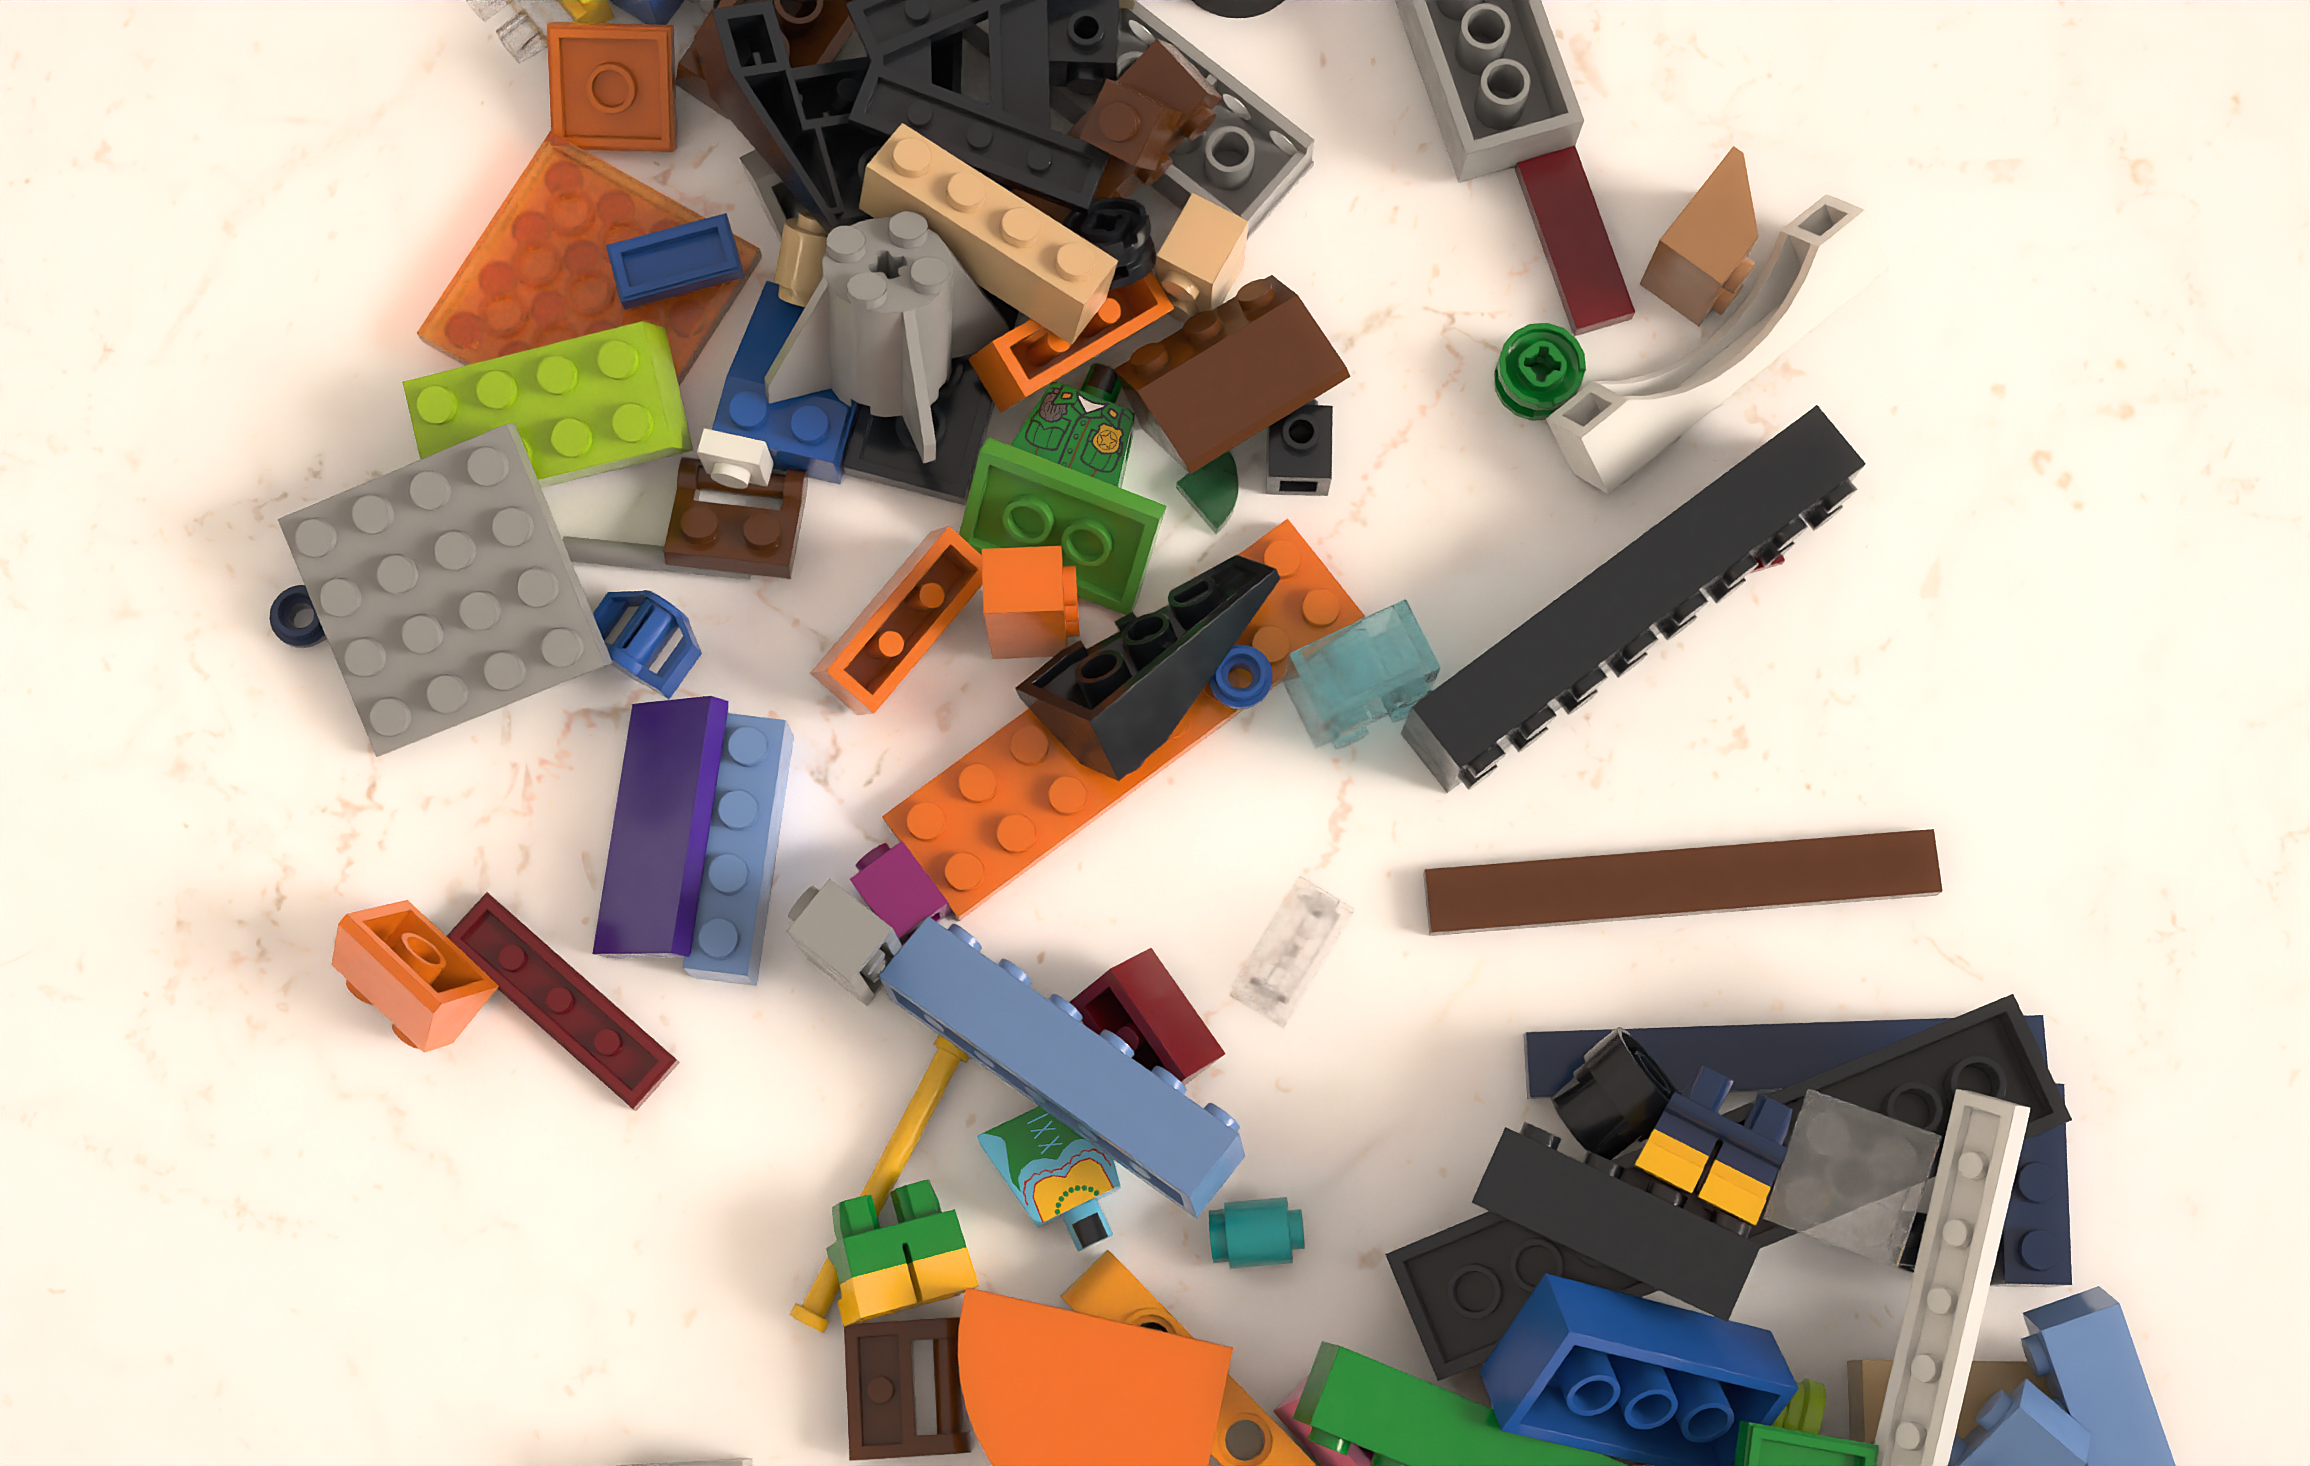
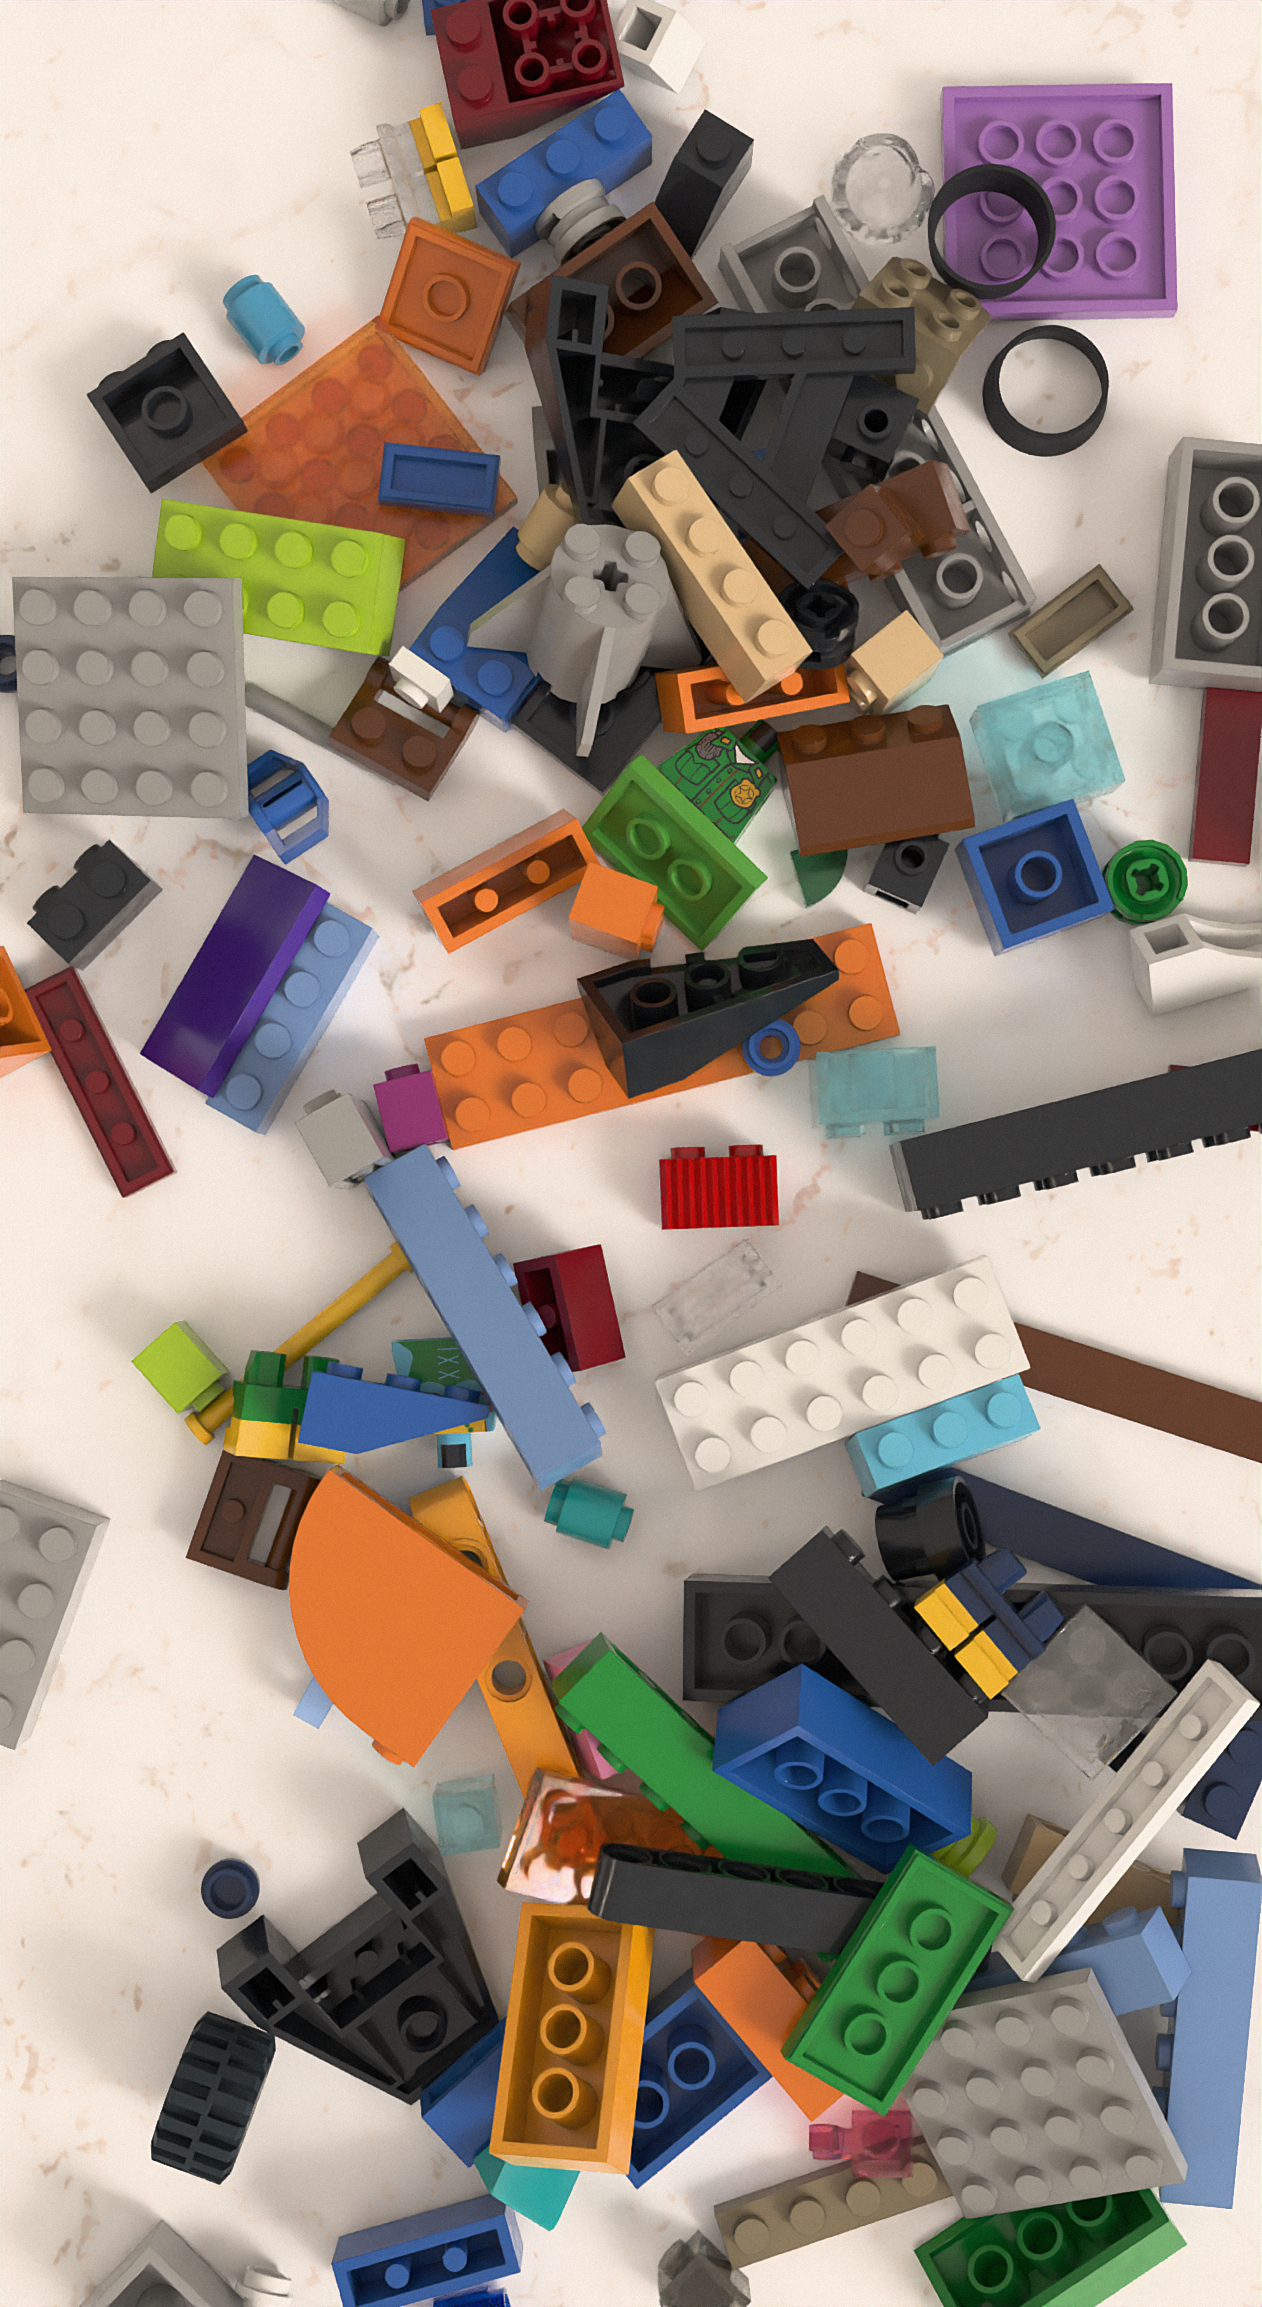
camera: 25 degrees right, 10 degrees up
(373, 303) = (167, 412): none -> black plate
(437, 181) = (264, 320): none -> dark azure brick
(486, 817) = (93, 904): none -> black brick
(767, 1260) = (182, 1368): none -> lime brick
(983, 1215) = (369, 1415): none -> blue slope
(1247, 844) = (718, 1189): none -> red brick
(1356, 154) = (1070, 621): none -> dark tan tile
(1387, 280) = (1047, 747): none -> clear light blue brick
(1429, 407) = (1033, 877): none -> blue brick
(1453, 973) = (841, 1372): none -> white brick
(1583, 996) = (942, 1435): none -> medium azure brick

